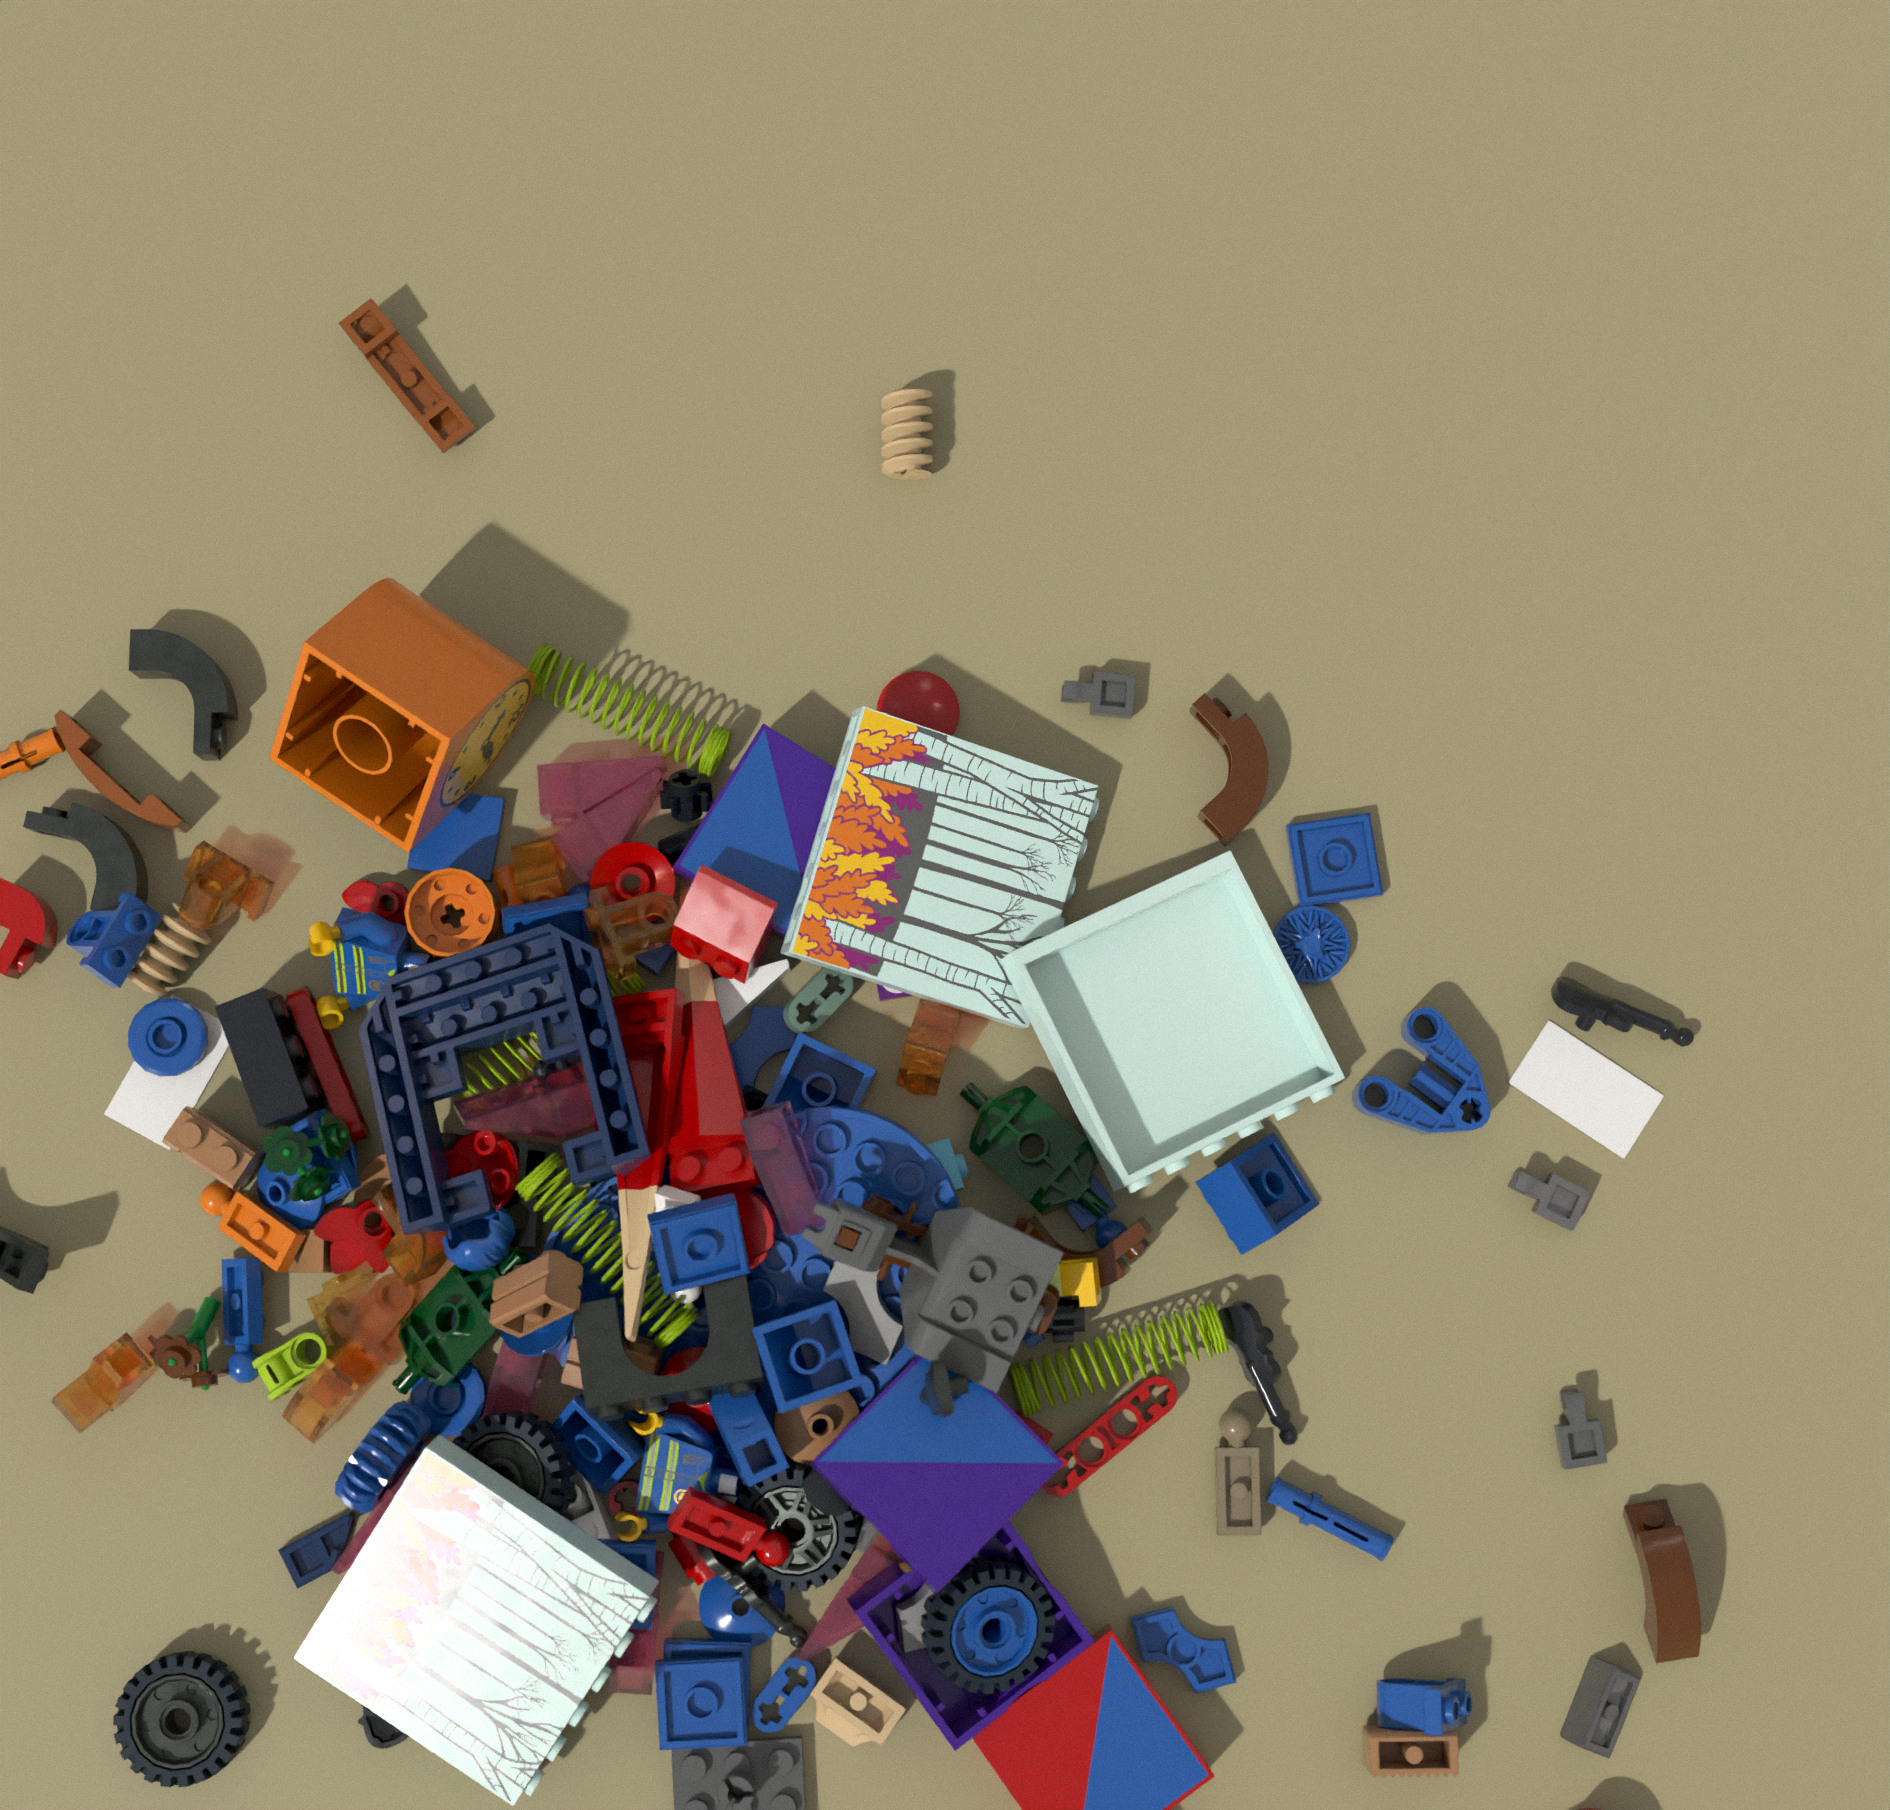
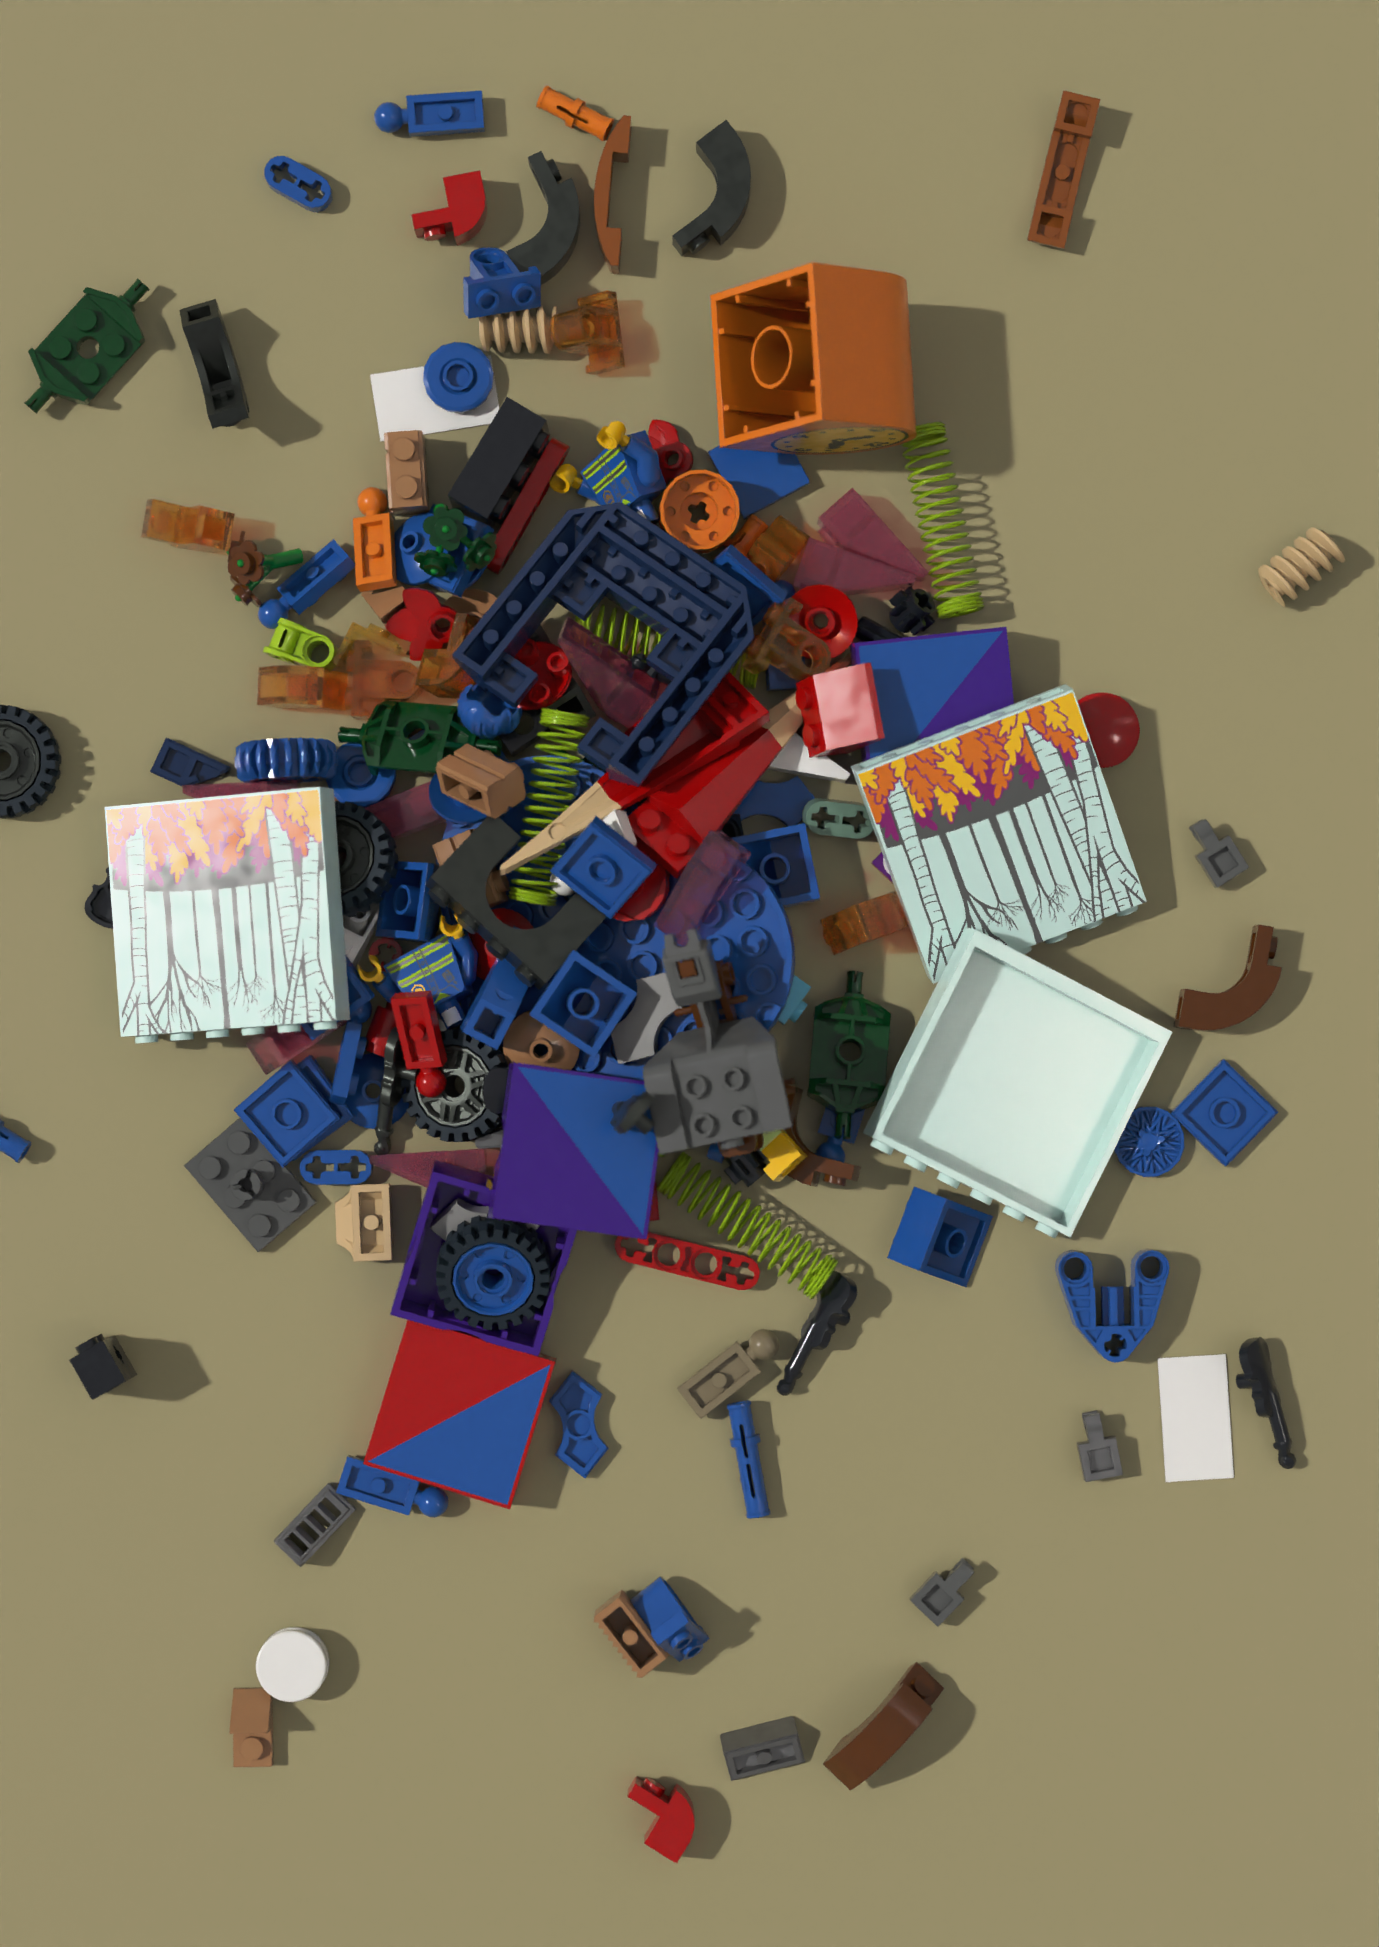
camera: 55 degrees right, 5 degrees up
(686, 1596) = (351, 1047): none -> blue plate

